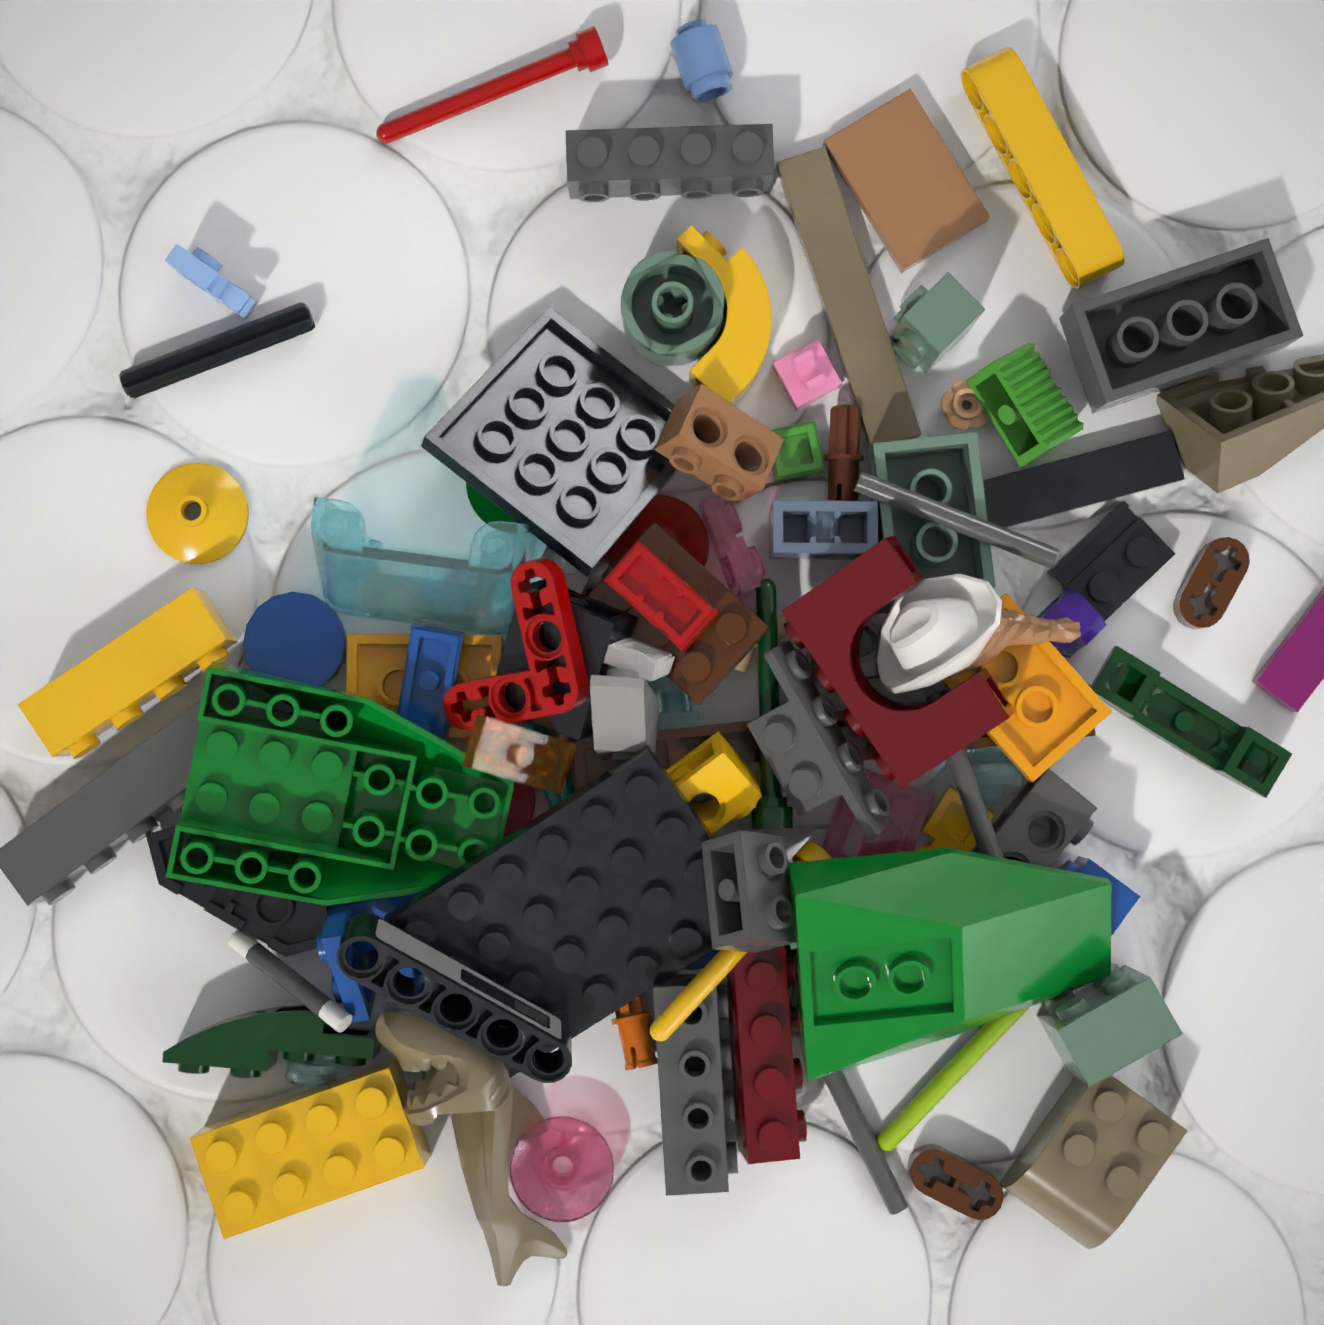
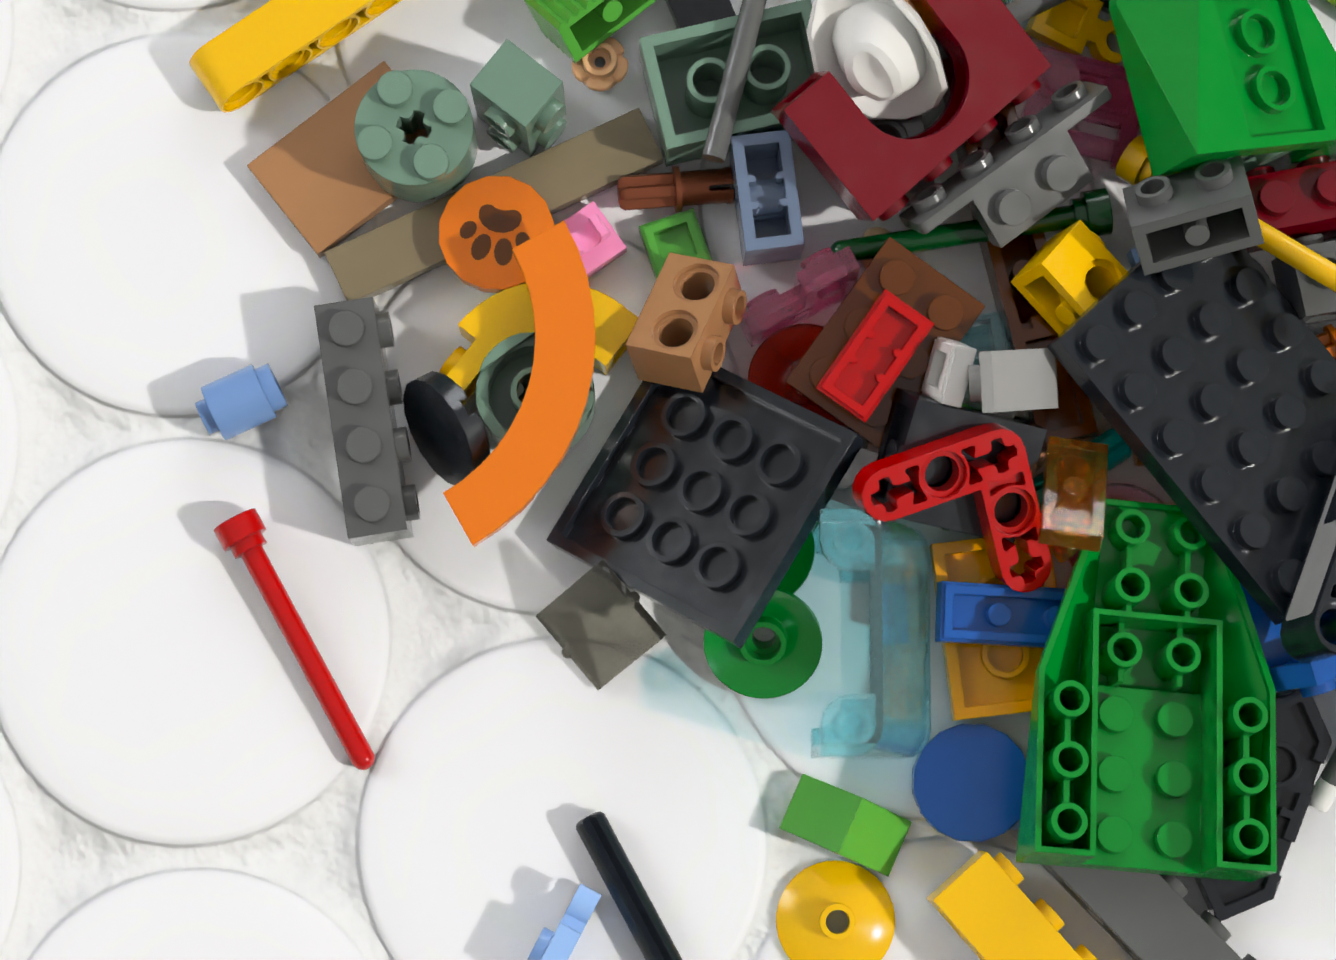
camera: 105 degrees left, 5 degrees down
(271, 531) = (845, 824): none -> bright green slope
(418, 490) = (774, 665): none -> green dish
(467, 341) = (600, 625): none -> clear smoke piece
(647, 228) = (442, 428): none -> black tile
(666, 317) = (554, 395): none -> orange tile
(820, 293) = (485, 225): none -> orange tile
(918, 200) = (402, 105): none -> sand green brick

